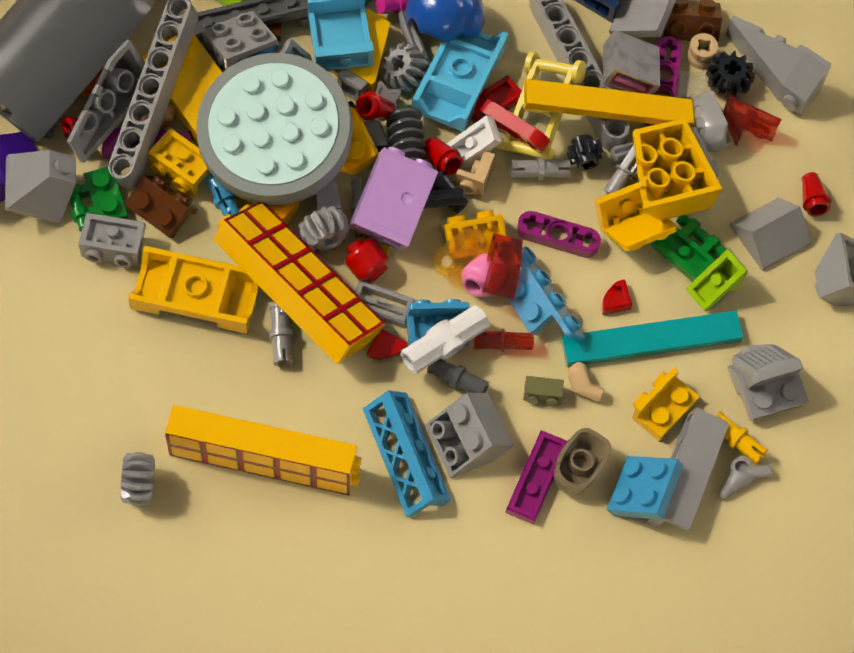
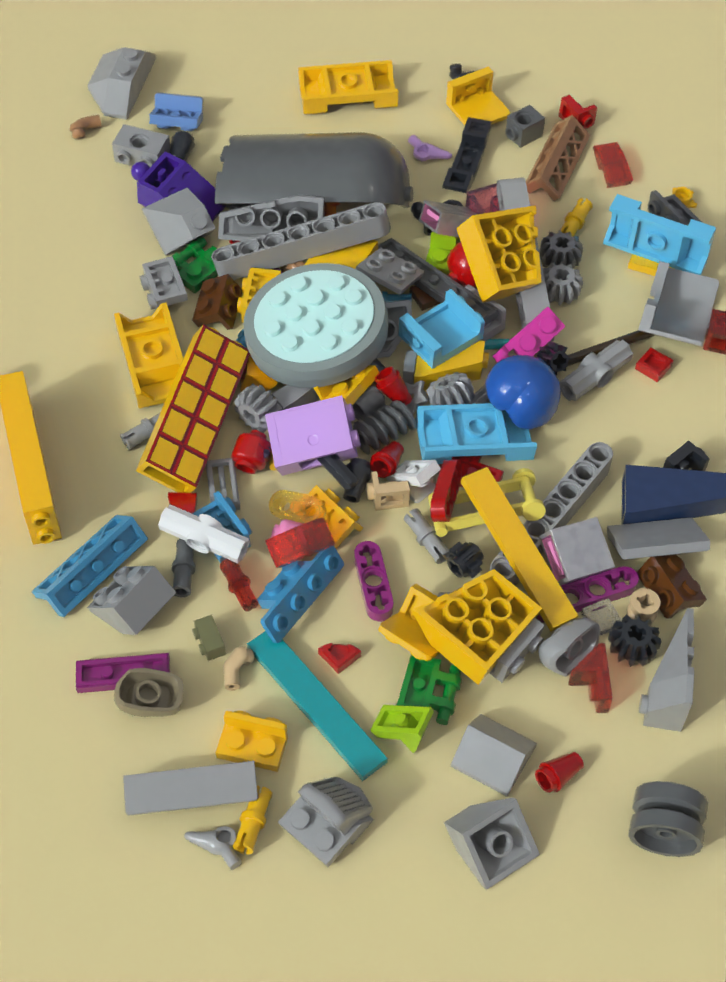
camera: 65 degrees right, 10 degrees down
(645, 487) = (149, 756): dark azure plate -> none

